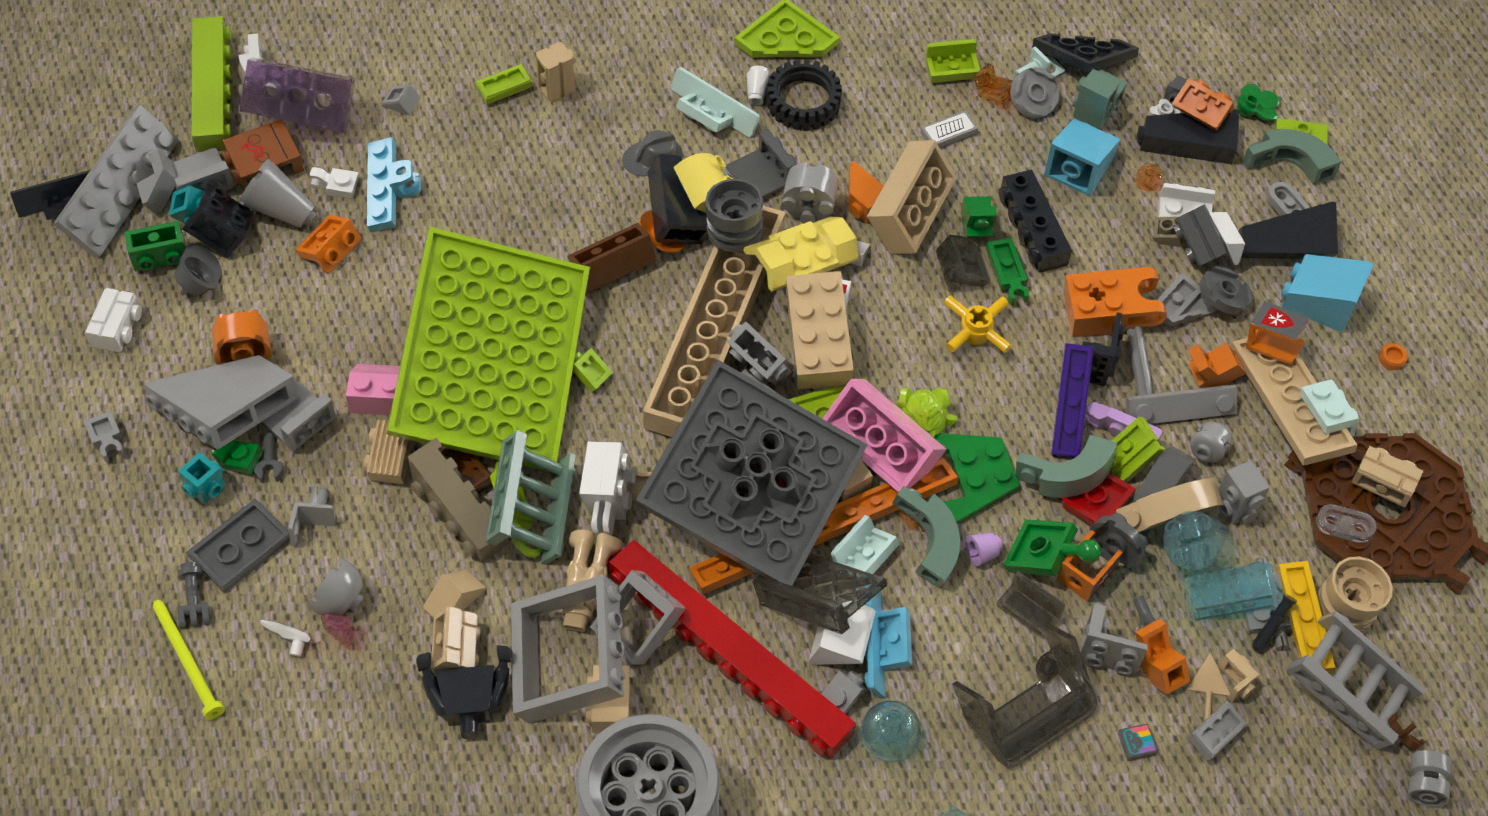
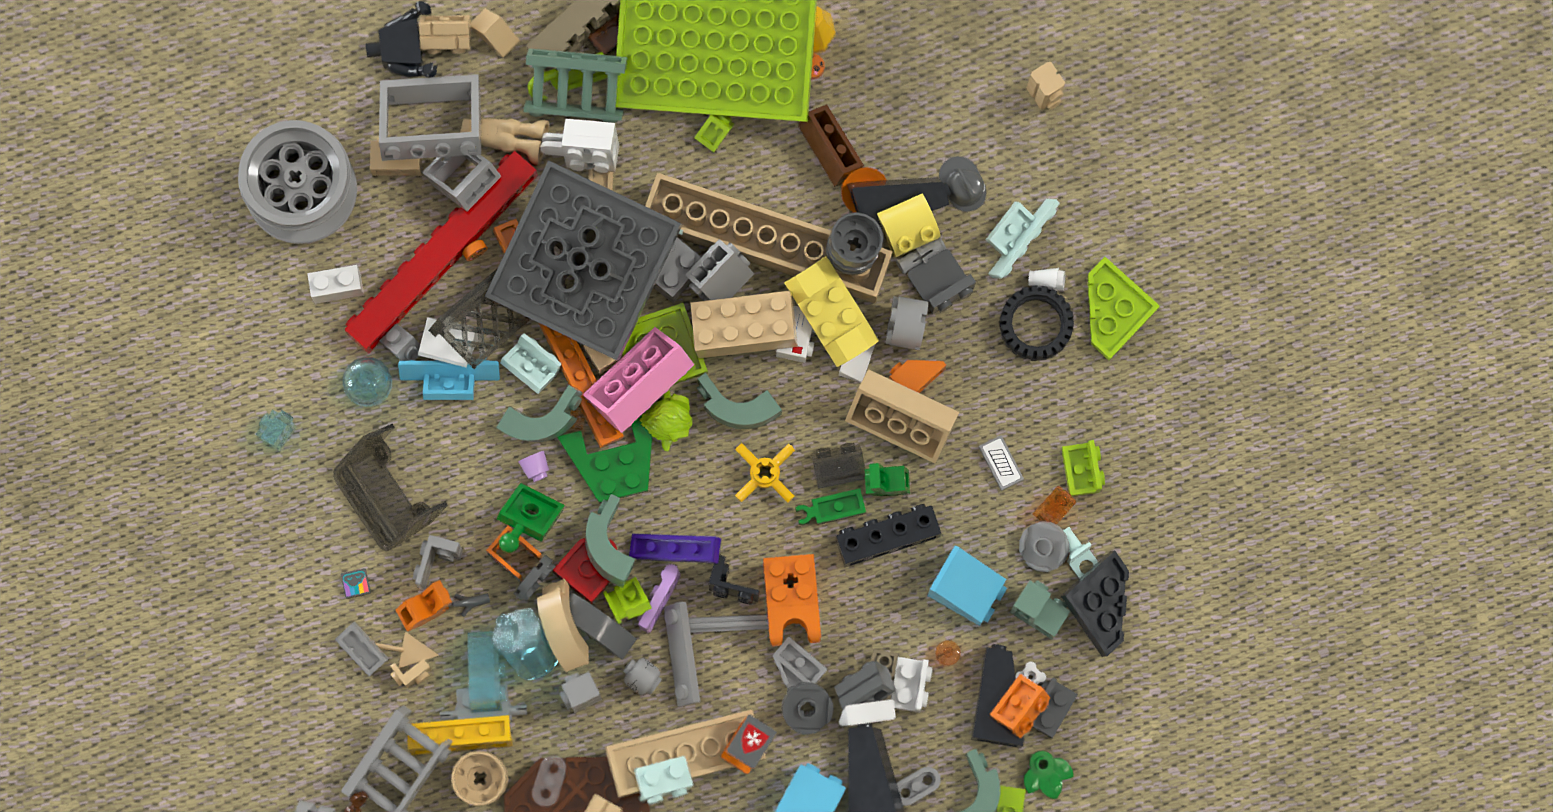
camera: 90 degrees right, 20 degrees up
(503, 84) = (1040, 41): lime plate -> none
(728, 608) = (474, 250): none -> orange tile
(772, 764) = (335, 284): none -> white brick
(911, 336) = (738, 415): none -> sand green arch
(1031, 604) = (478, 502): clear smoke panel -> none
(1215, 367) = (722, 687): orange brick -> none
(1277, 617) = (458, 707): black piece -> none

